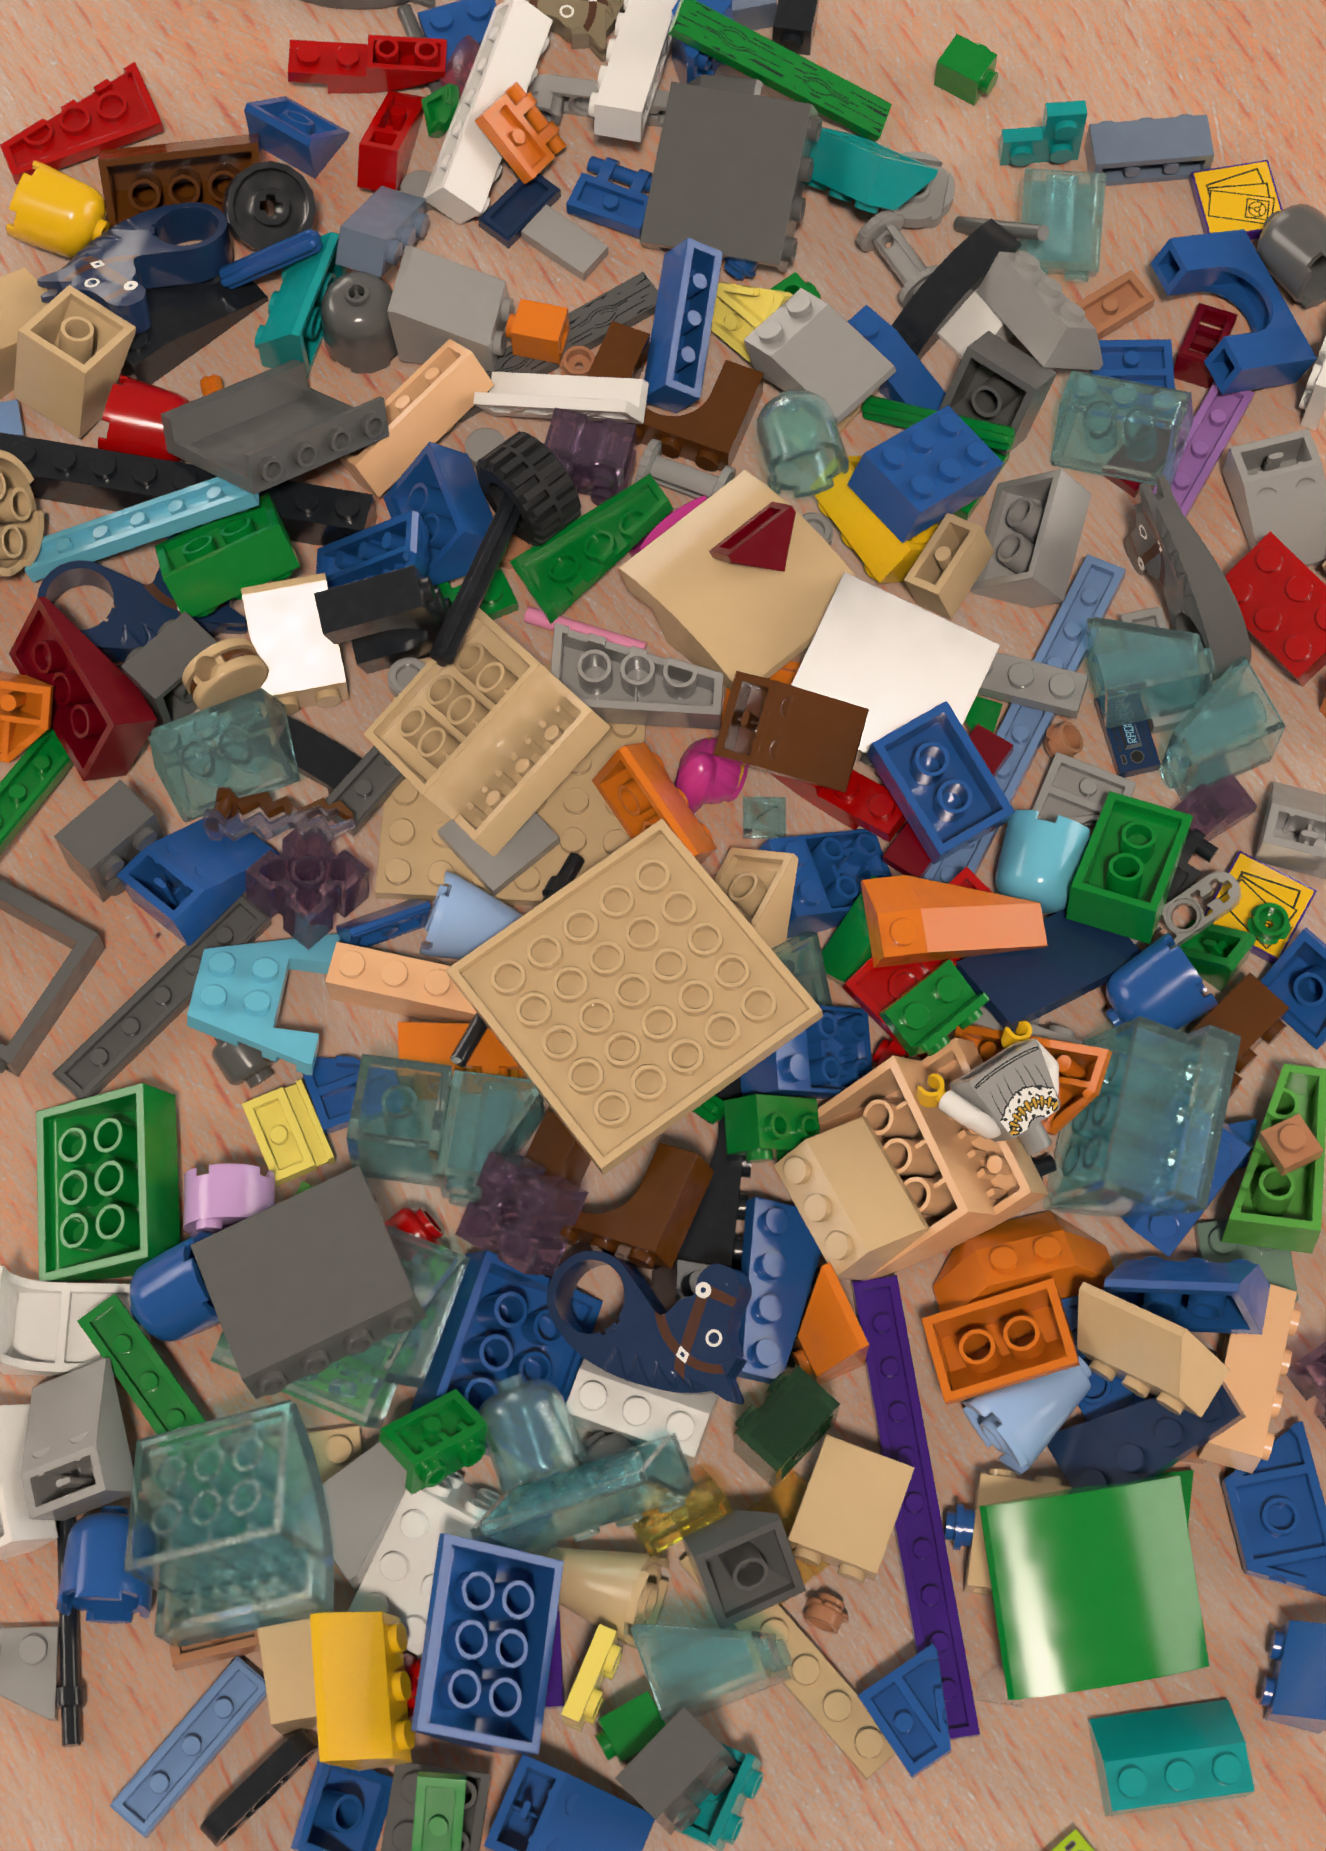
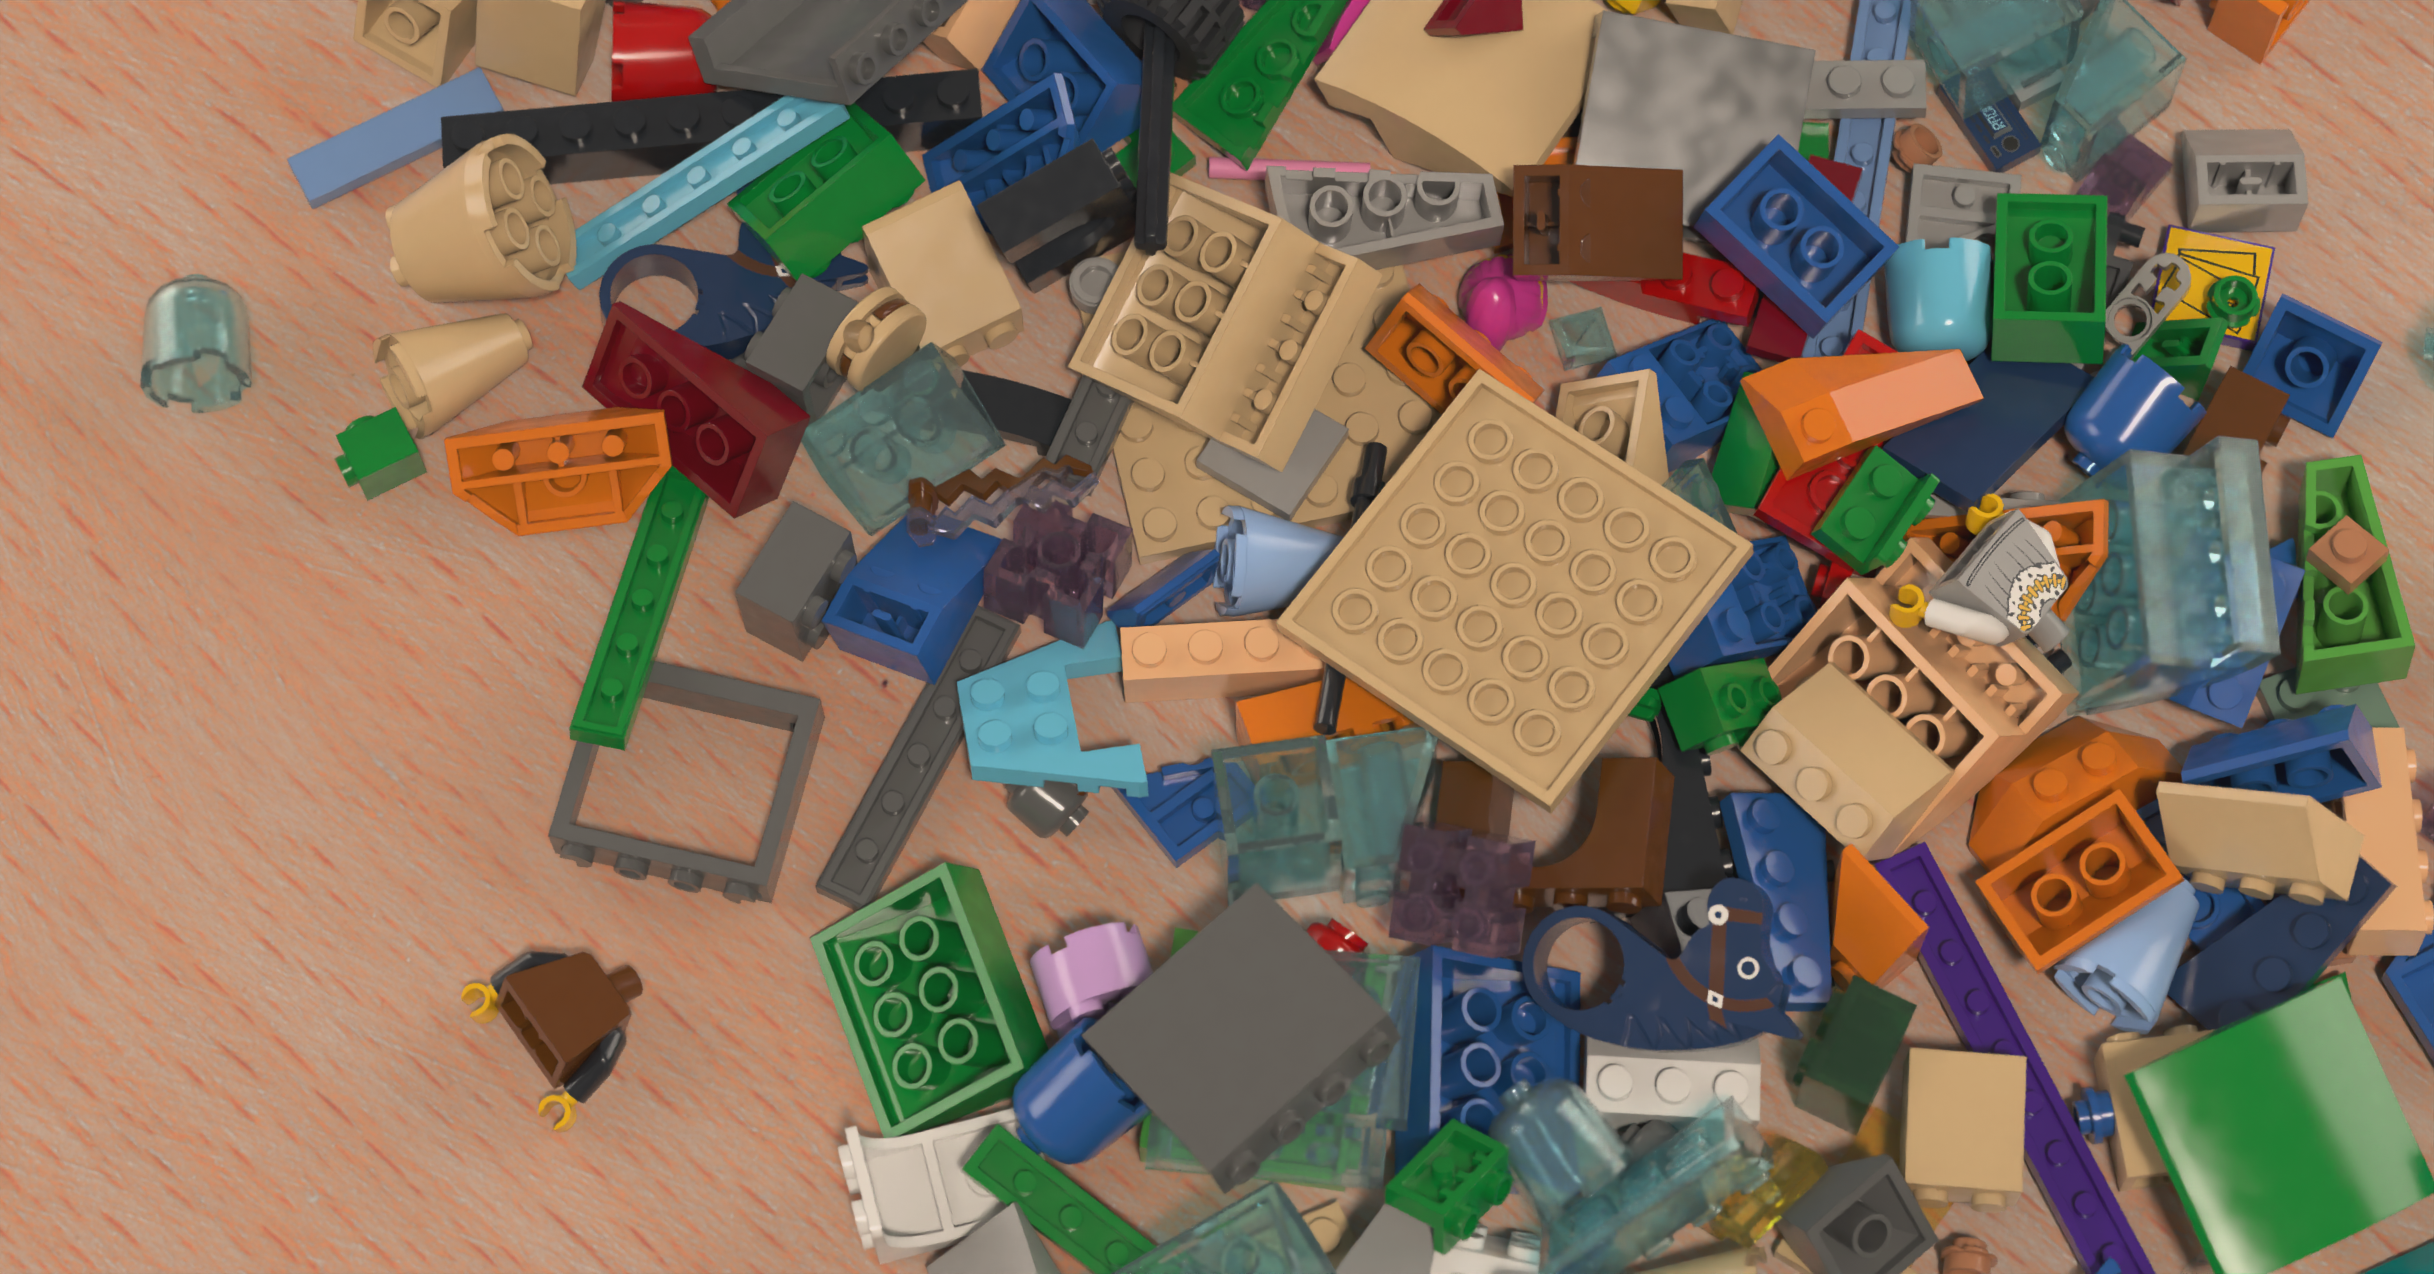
camera: 15 degrees left, 0 degrees up
(288, 1132) = (1132, 875): light yellow plate -> none

